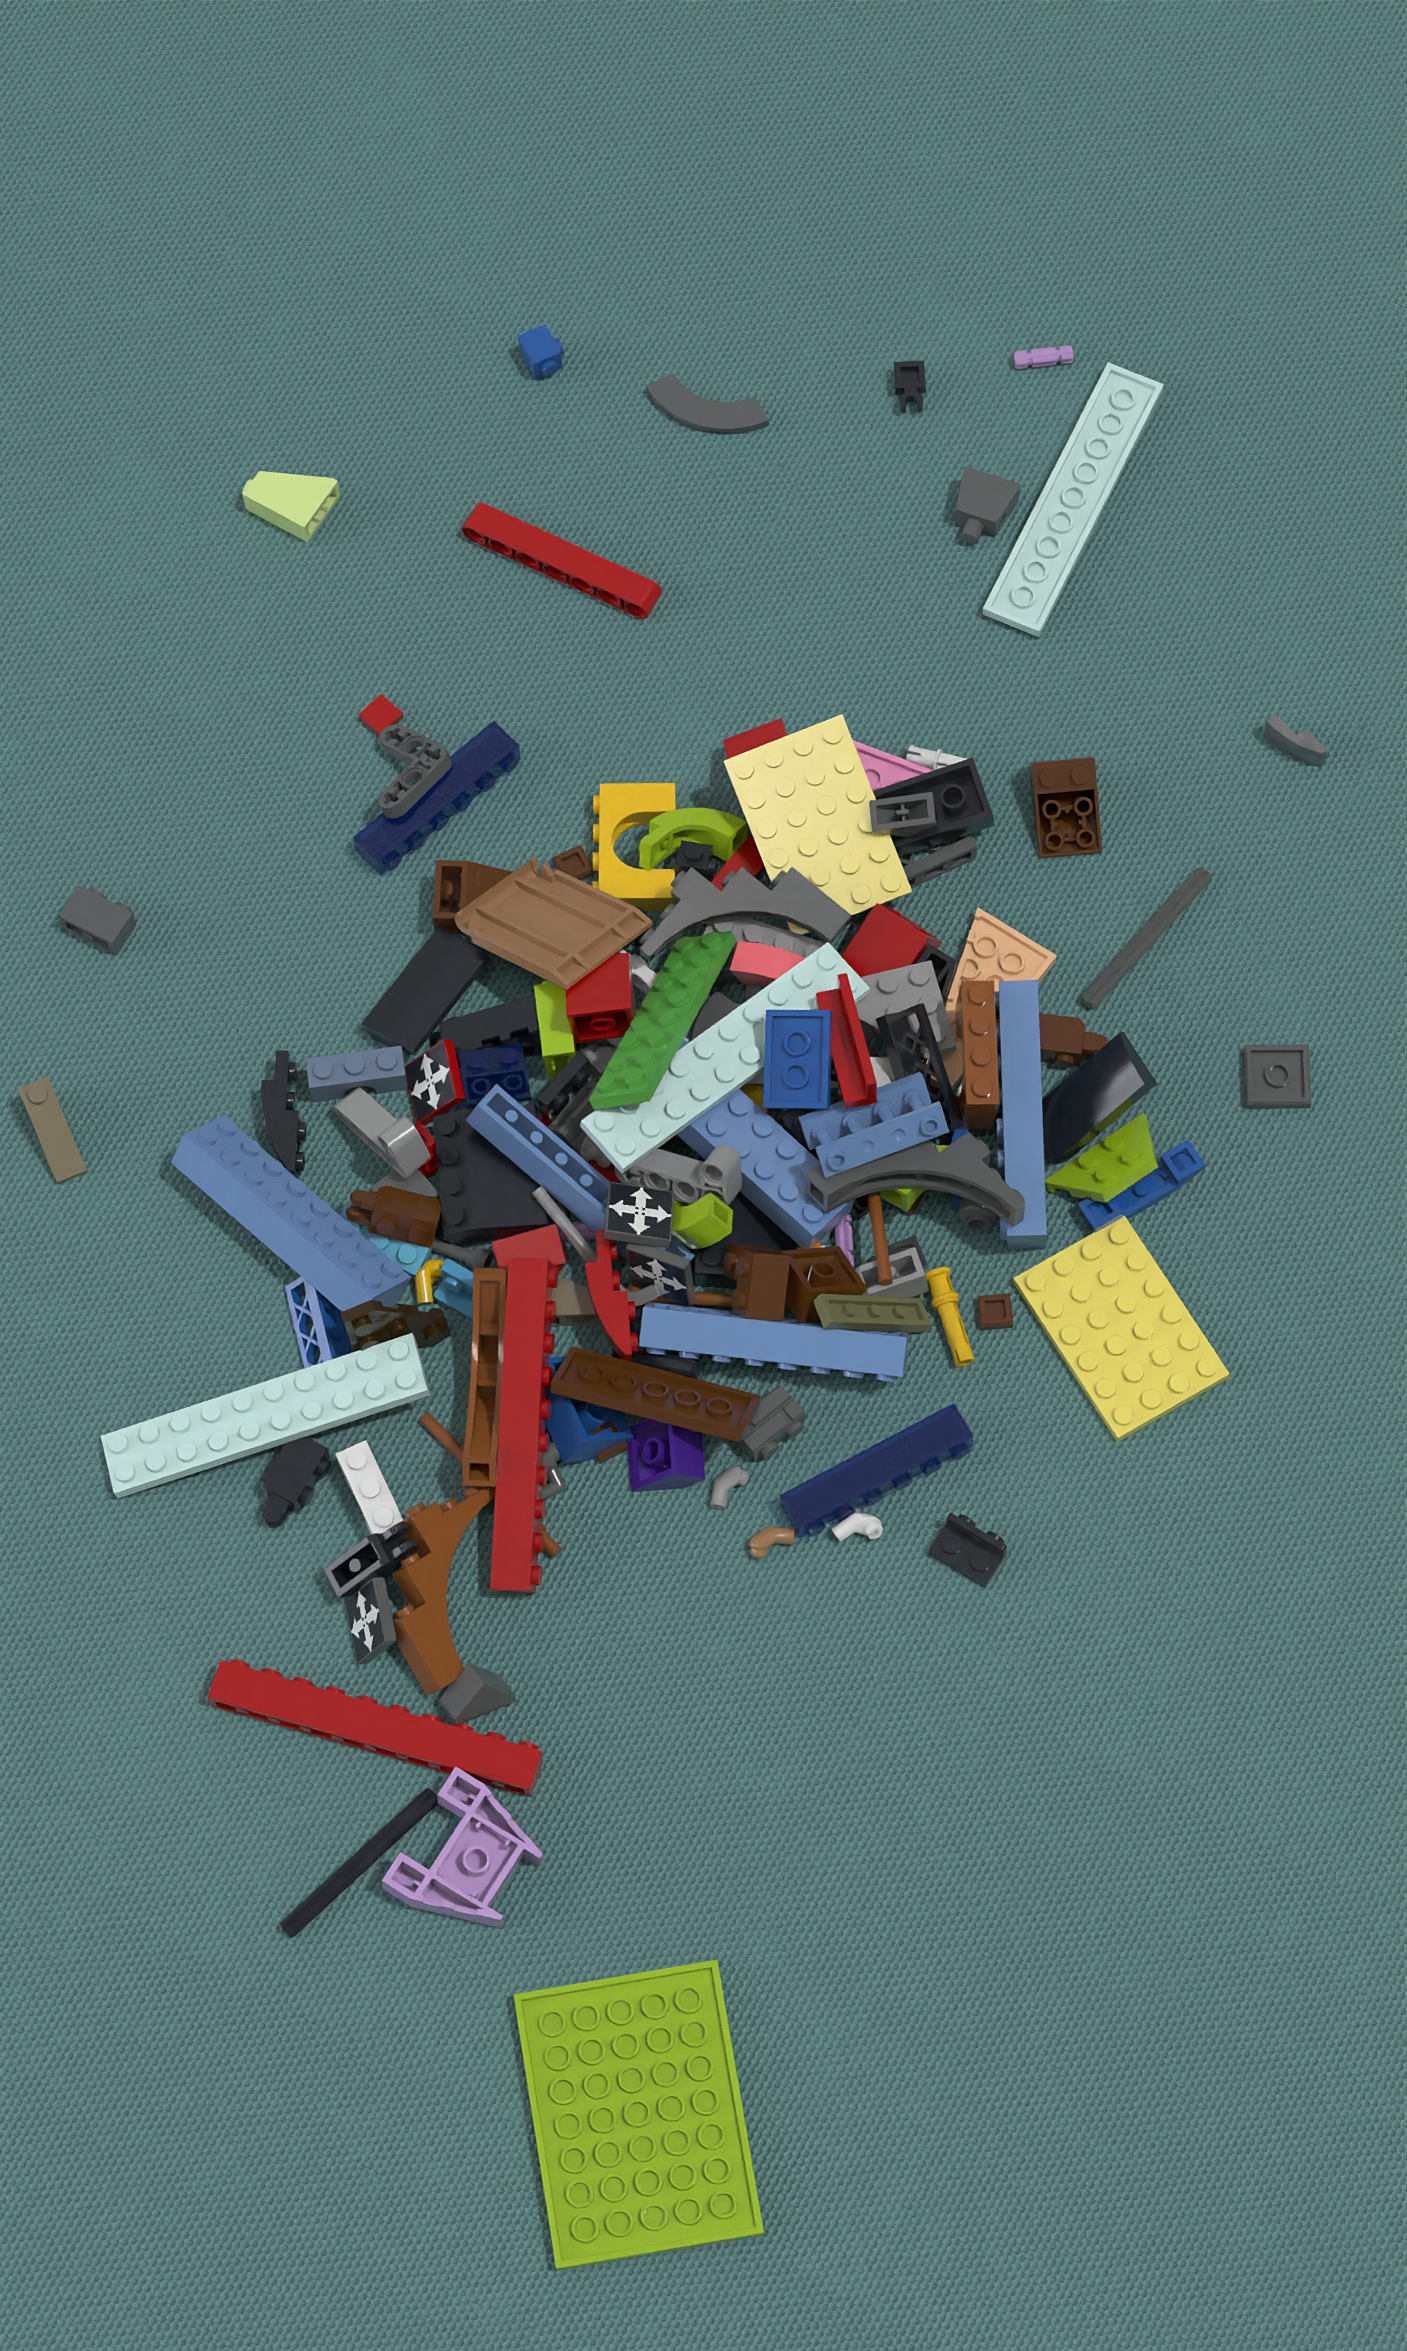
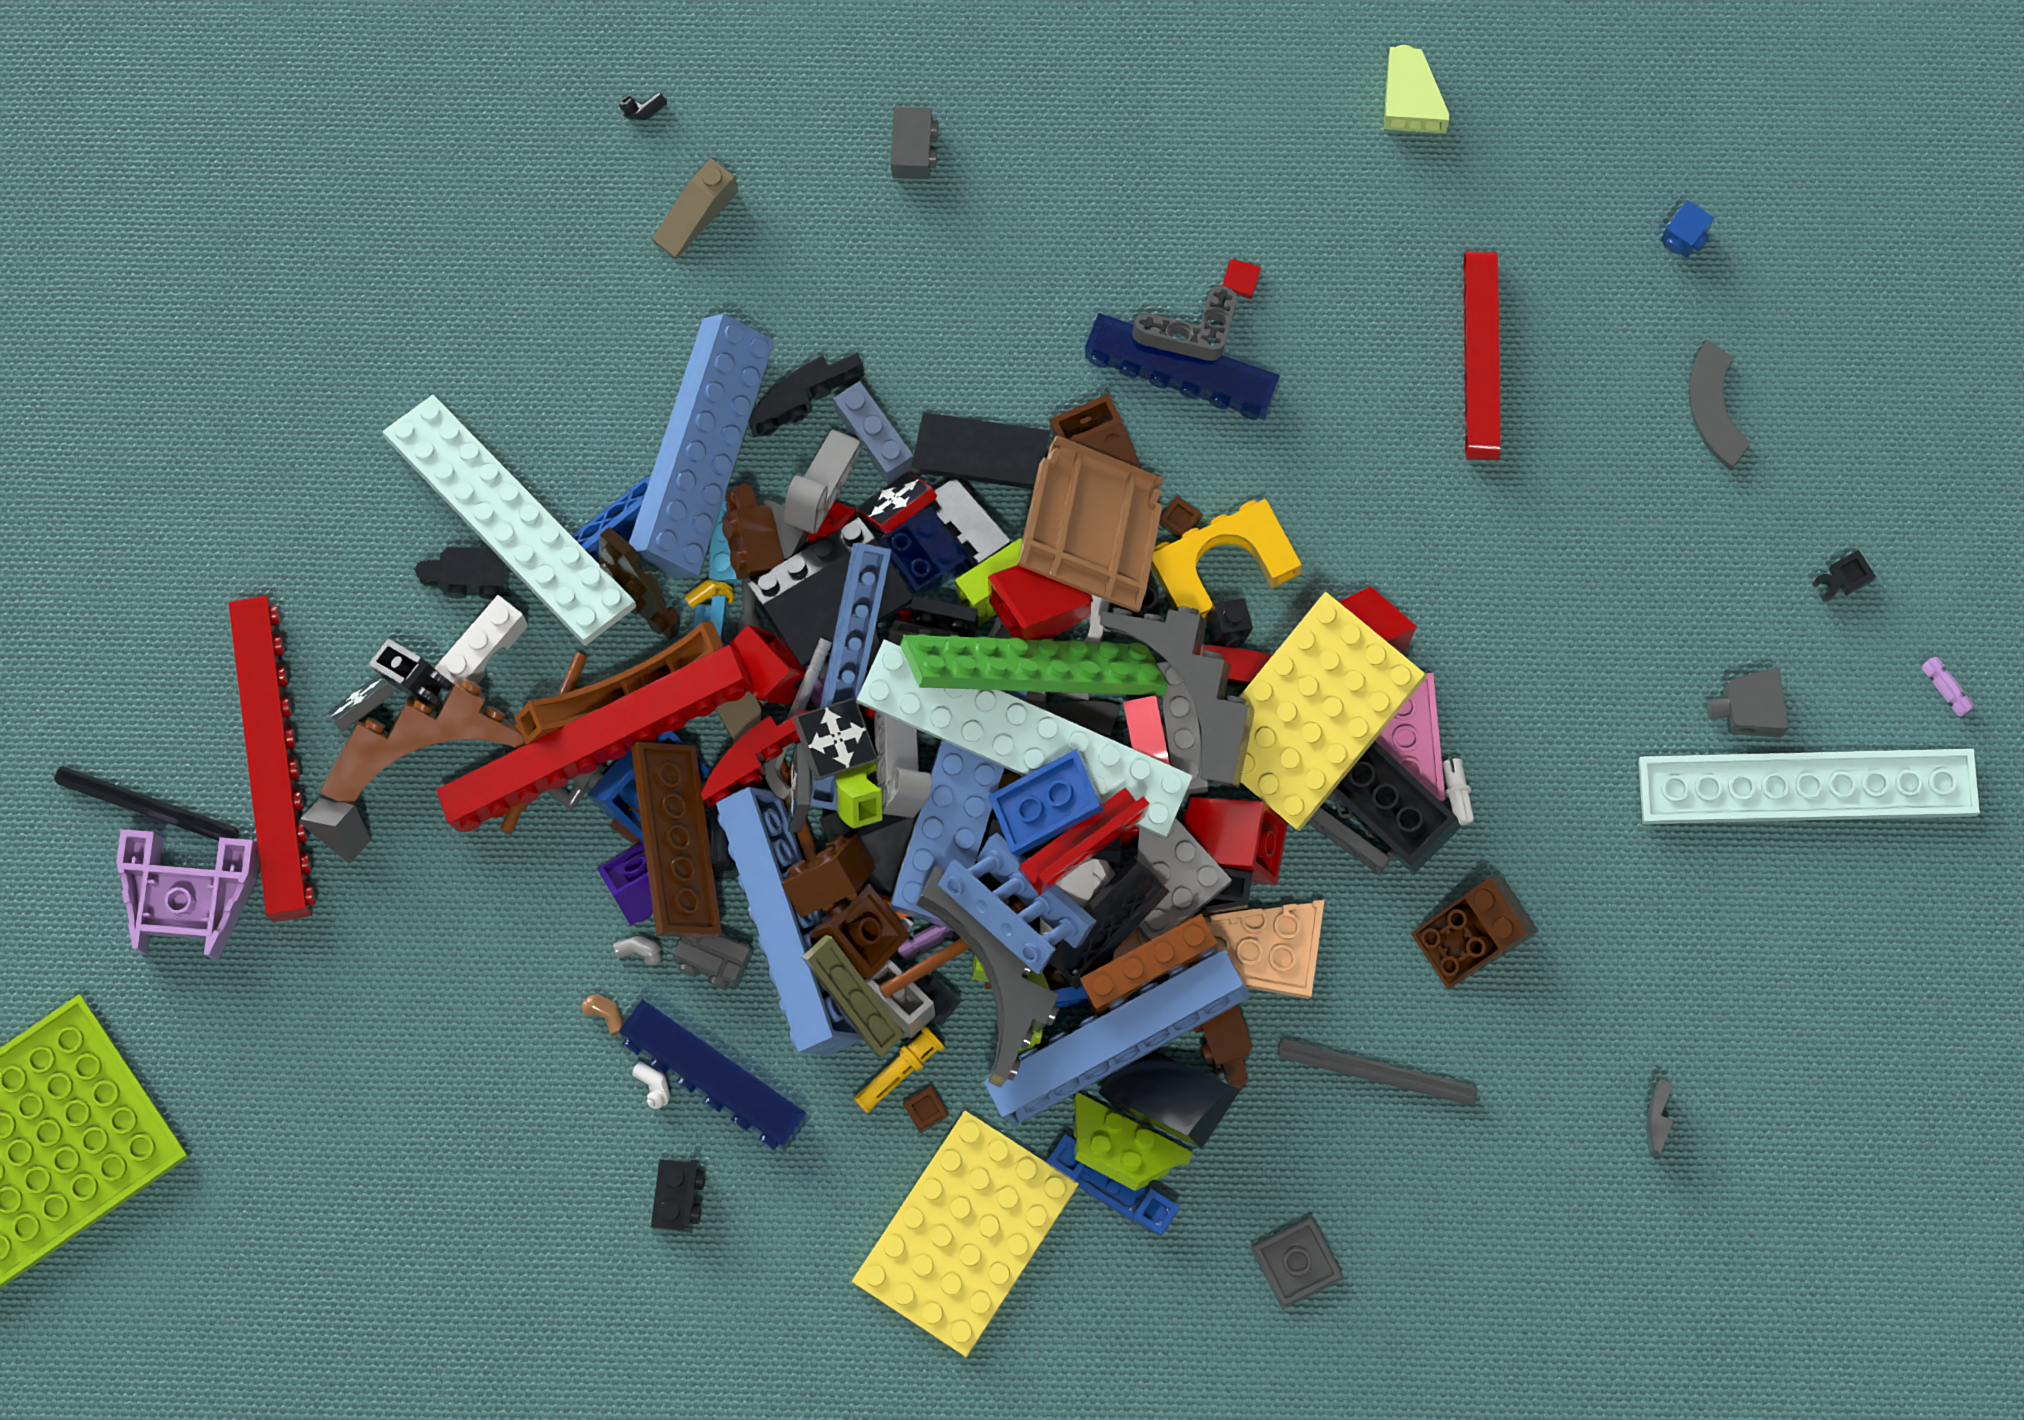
camera: 65 degrees right, 5 degrees up
(692, 825) = (1265, 599): lime arch -> none
(903, 814) = (1357, 779): dark grey slope -> none

